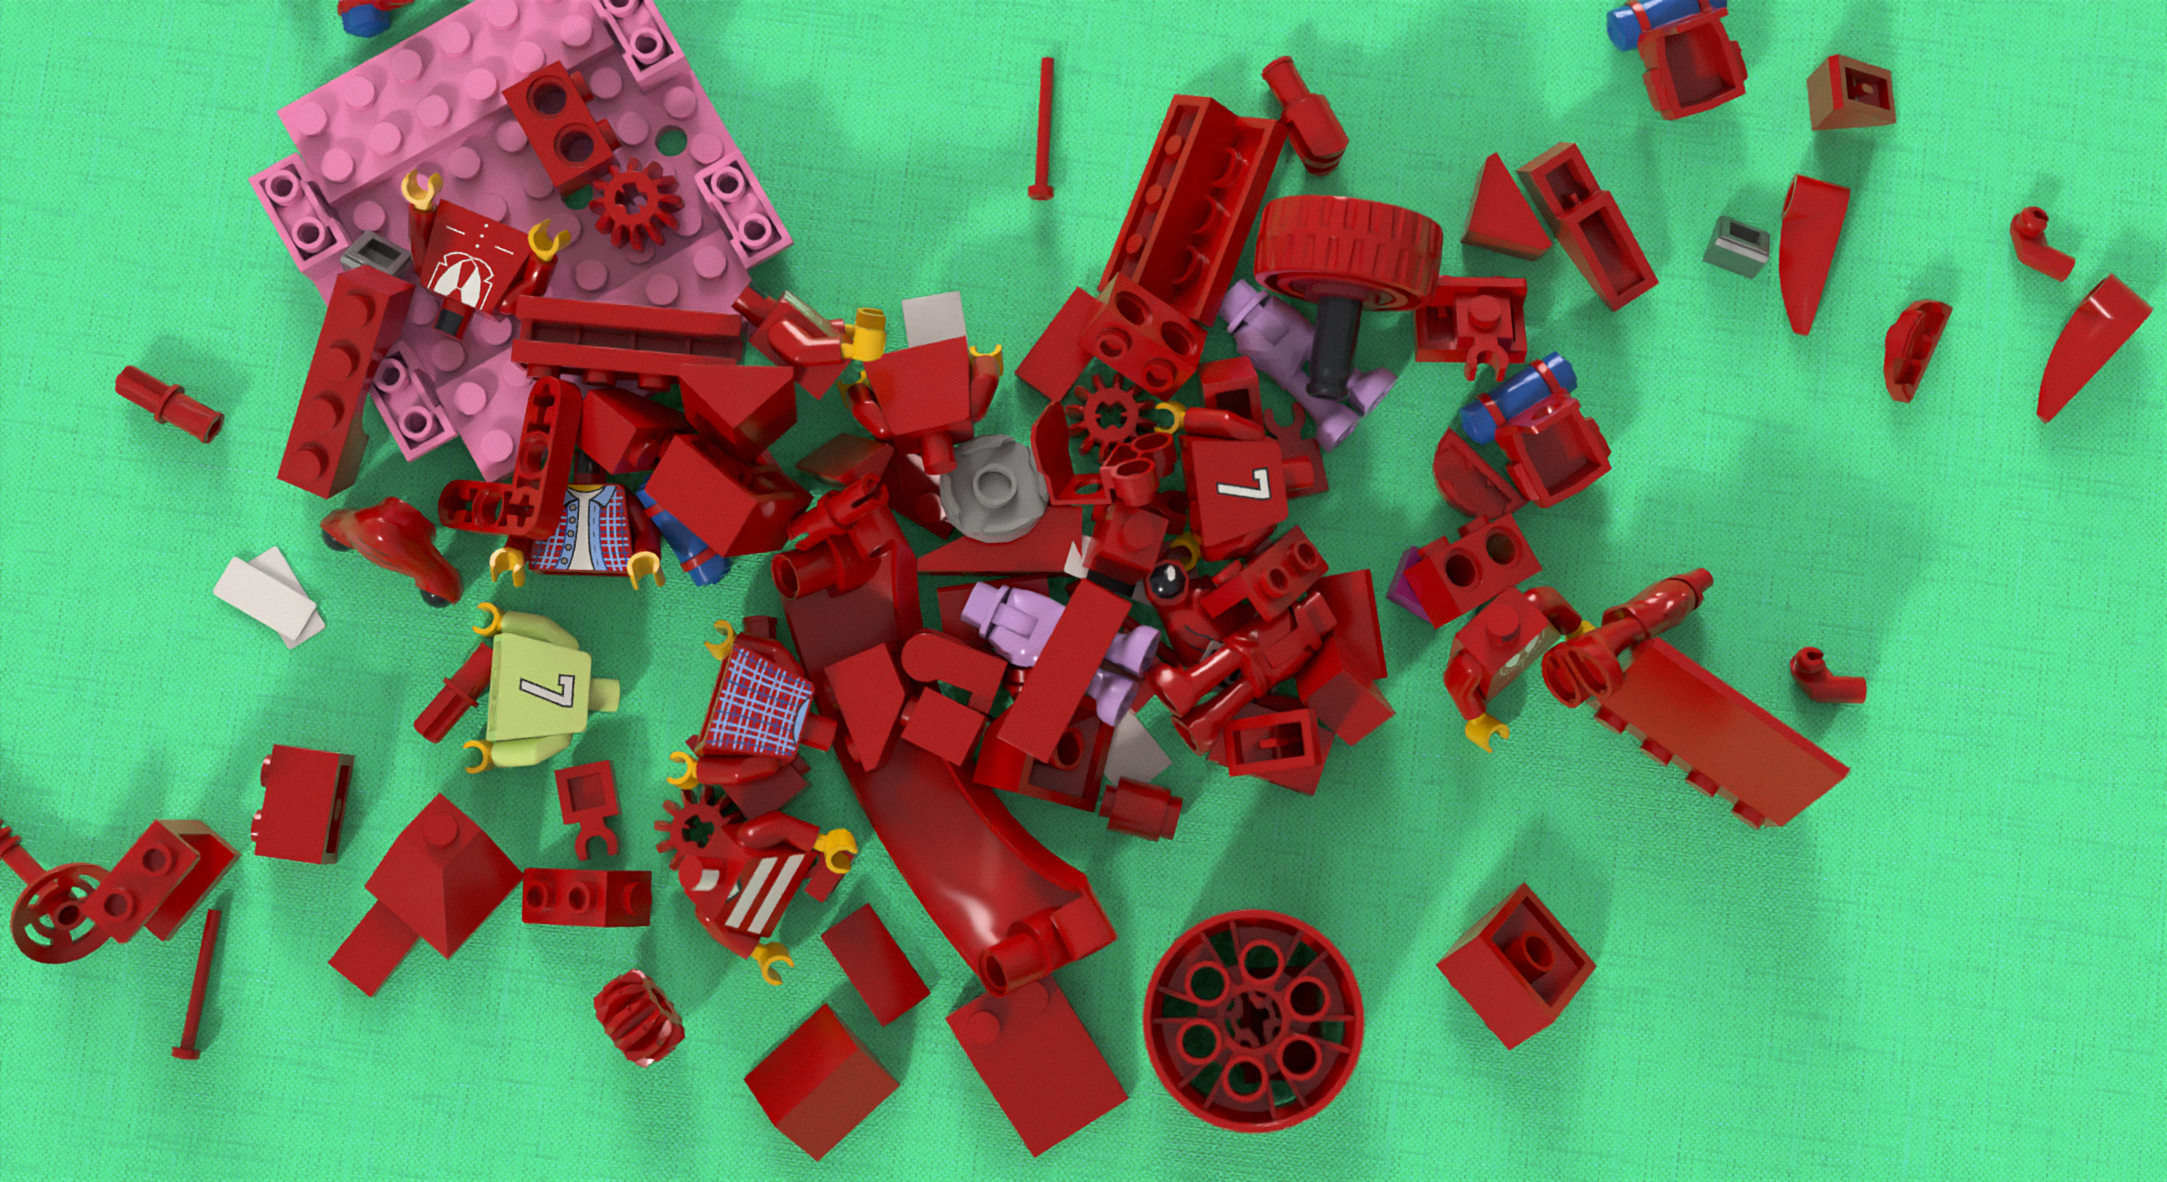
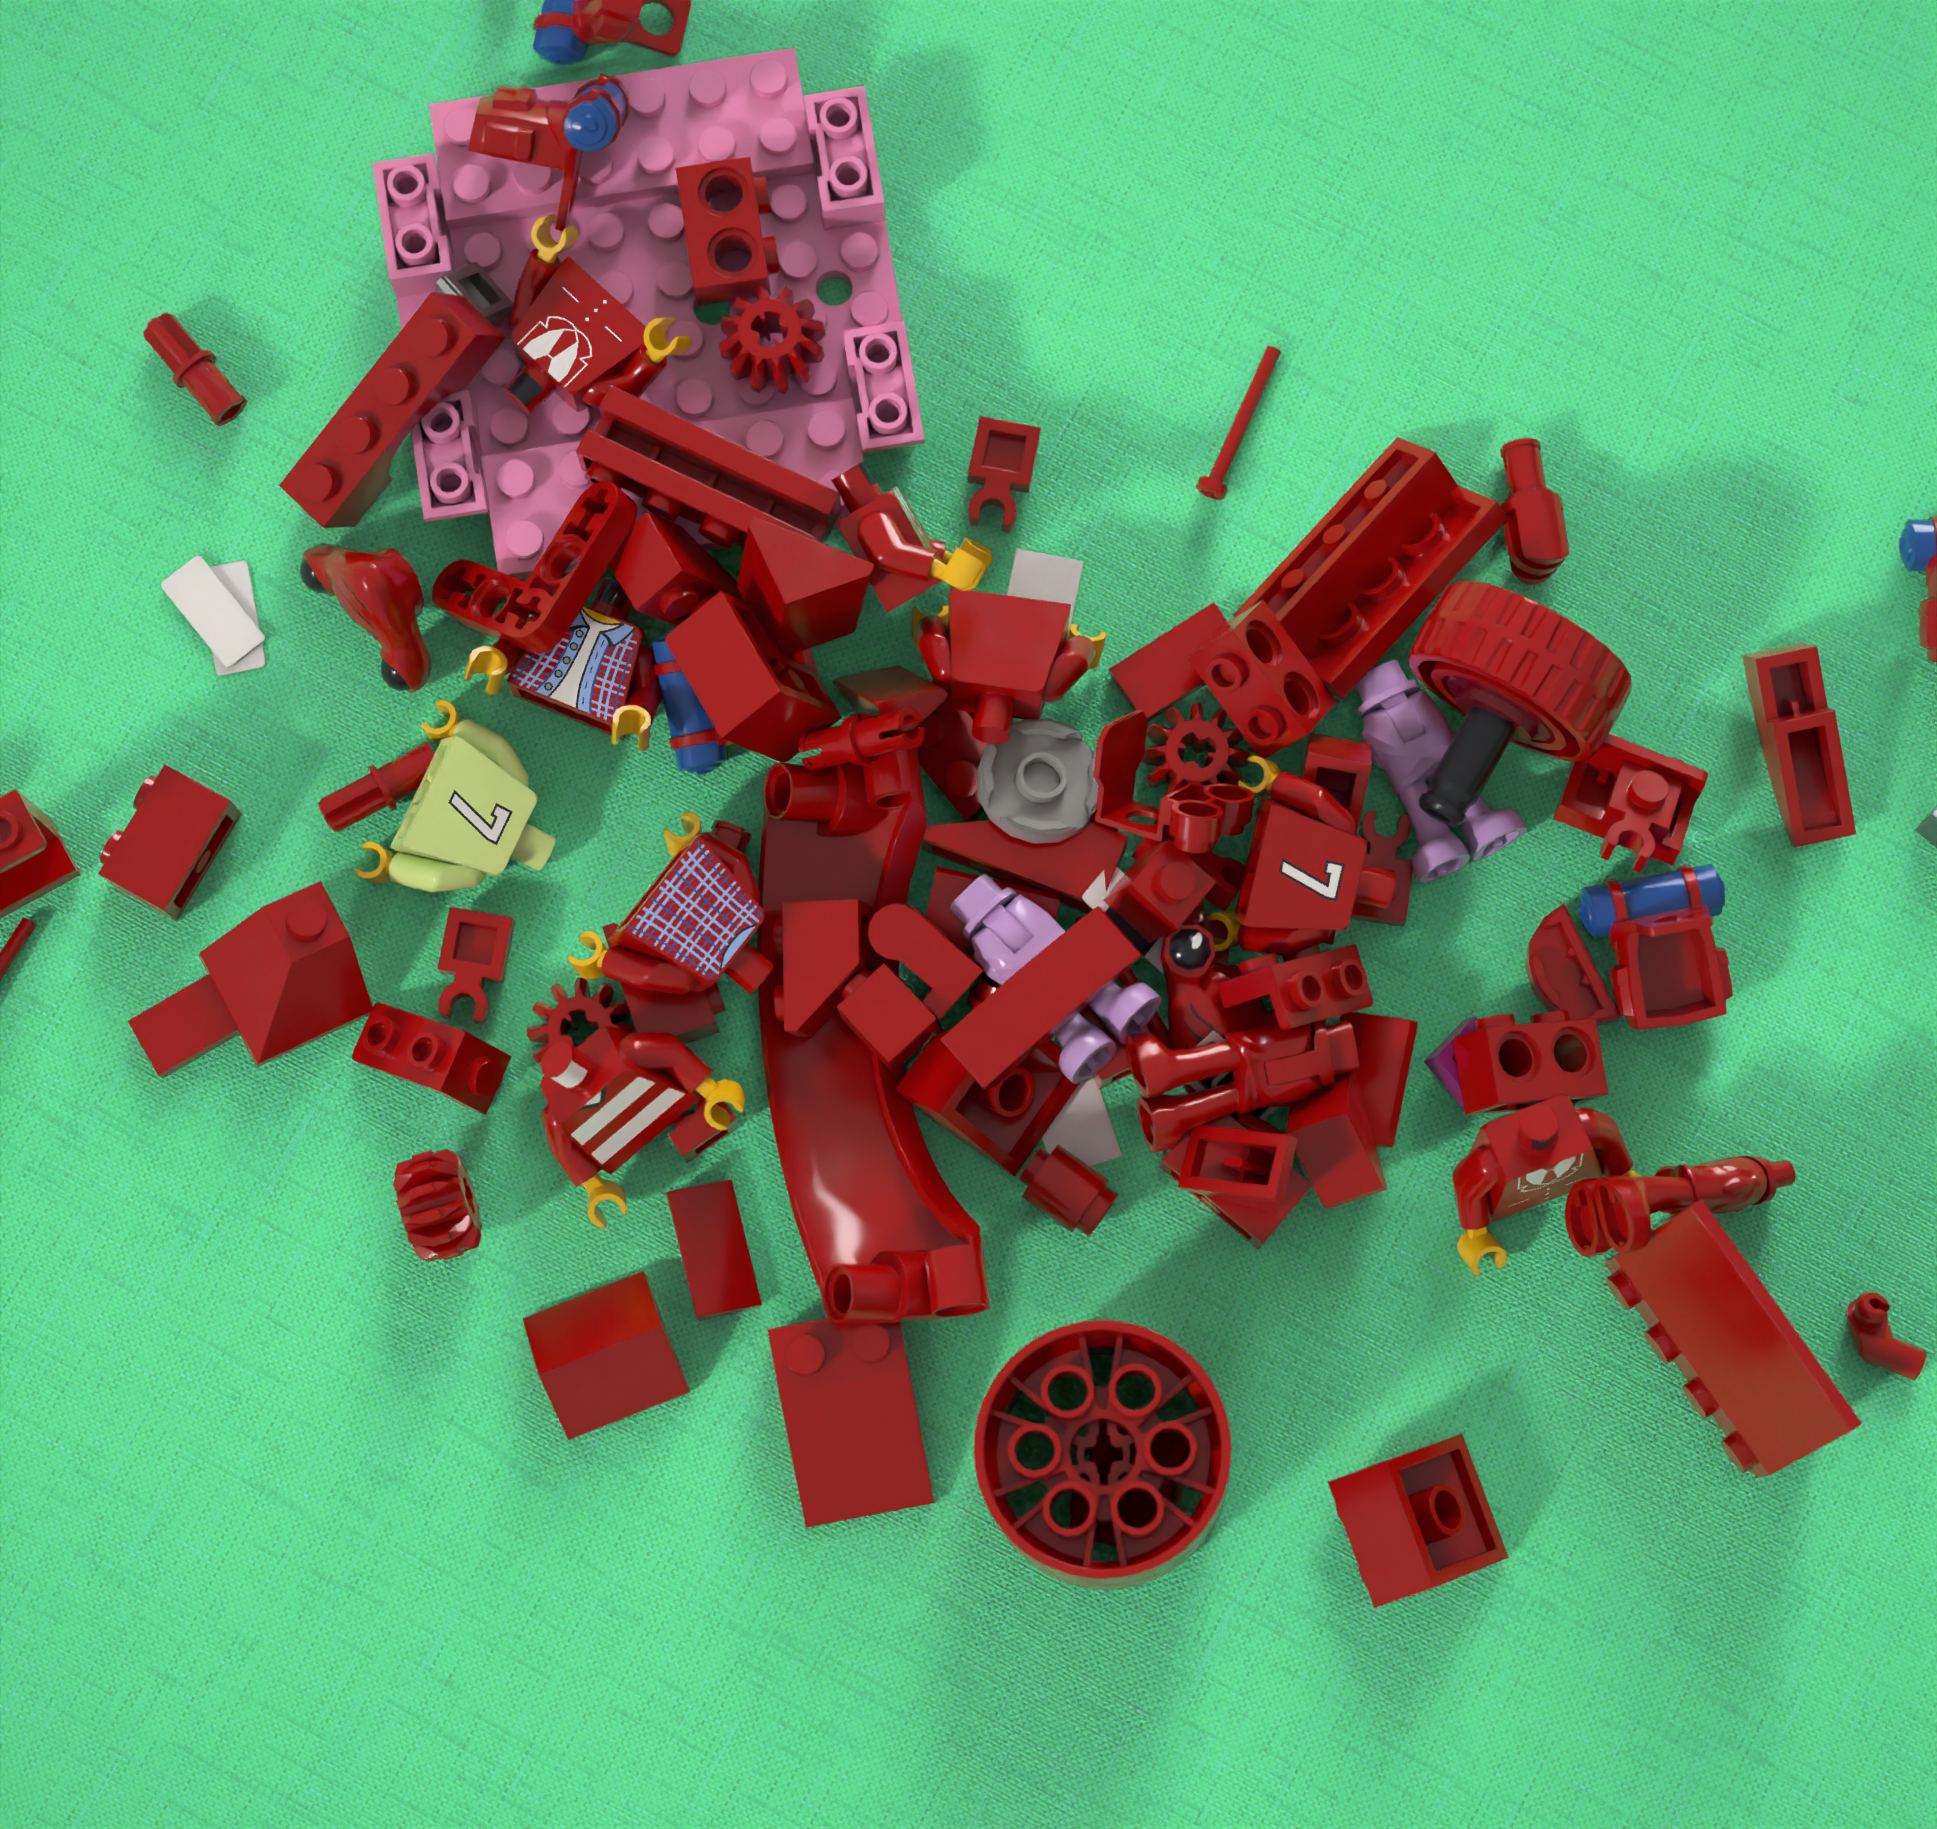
camera: 25 degrees right, 5 degrees down
(386, 101) = (551, 132): none -> red piece
(863, 234) = (1002, 462): none -> red plate
(1501, 216) = (1707, 699): red slope -> none

